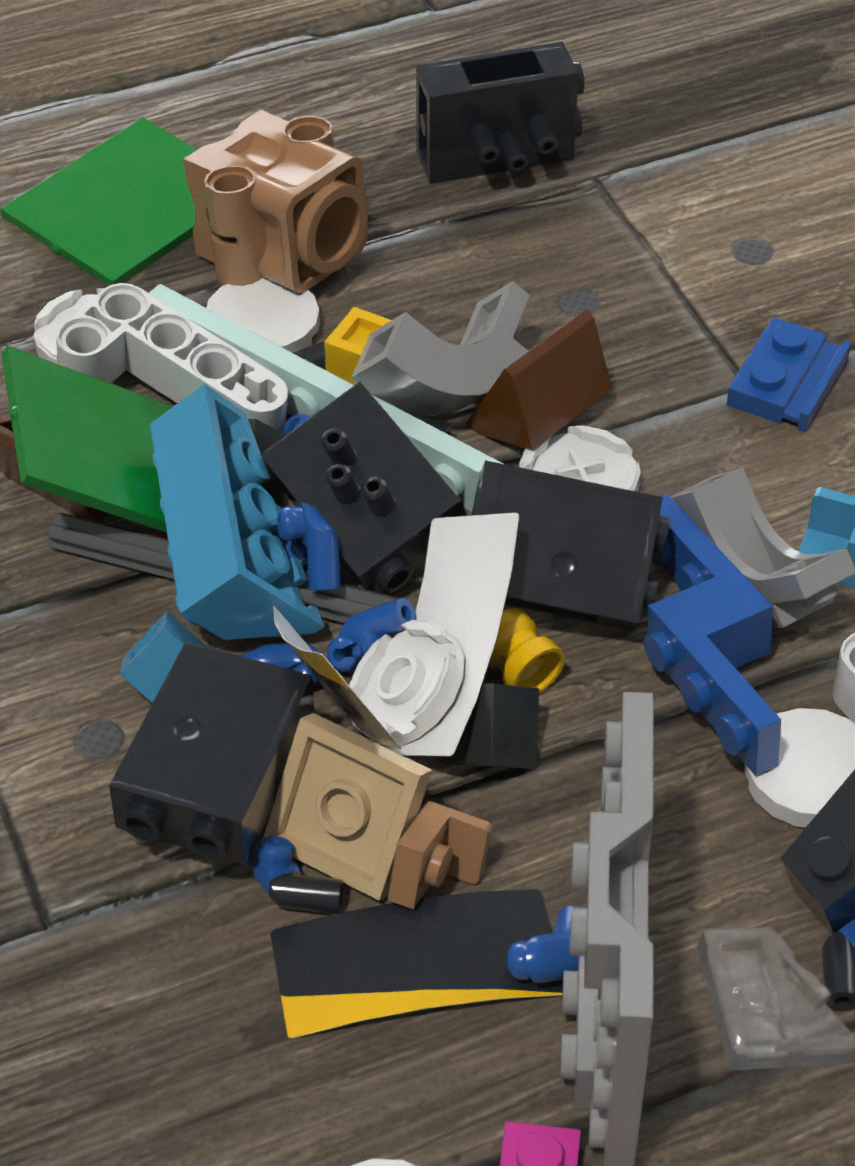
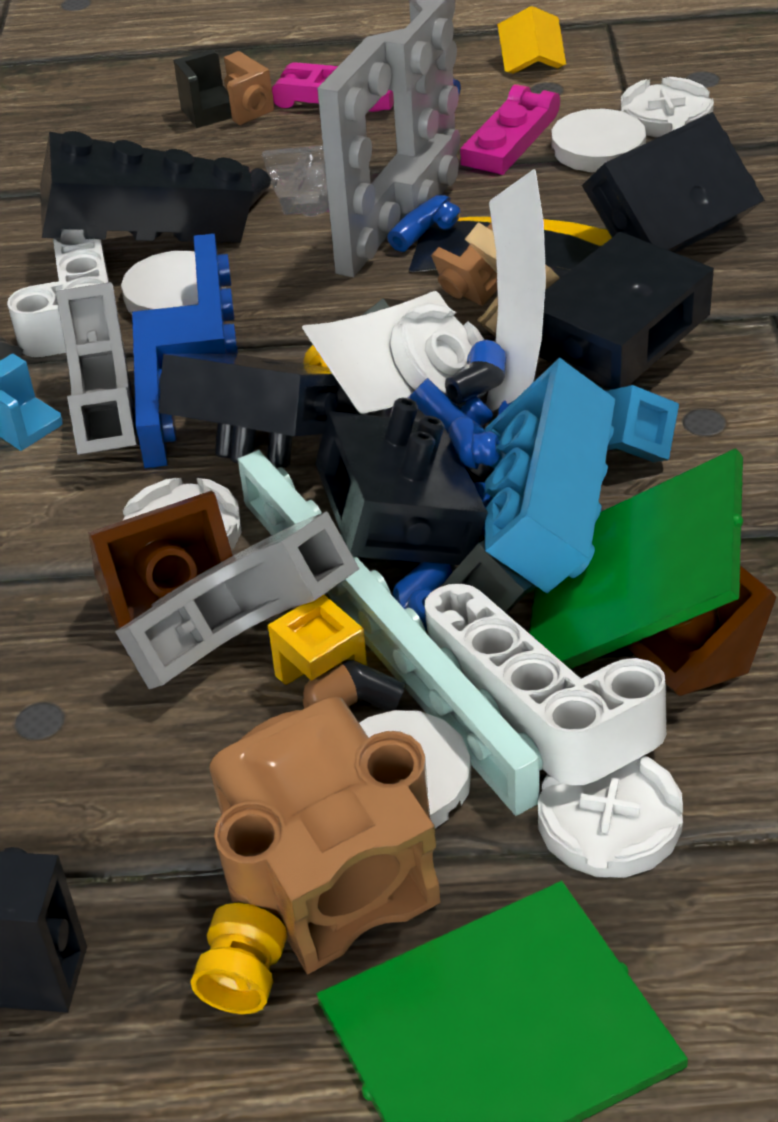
camera: 155 degrees left, 5 degrees down
(211, 1016) = (675, 187): none -> black piece
(347, 650) = (484, 373): none -> black arm

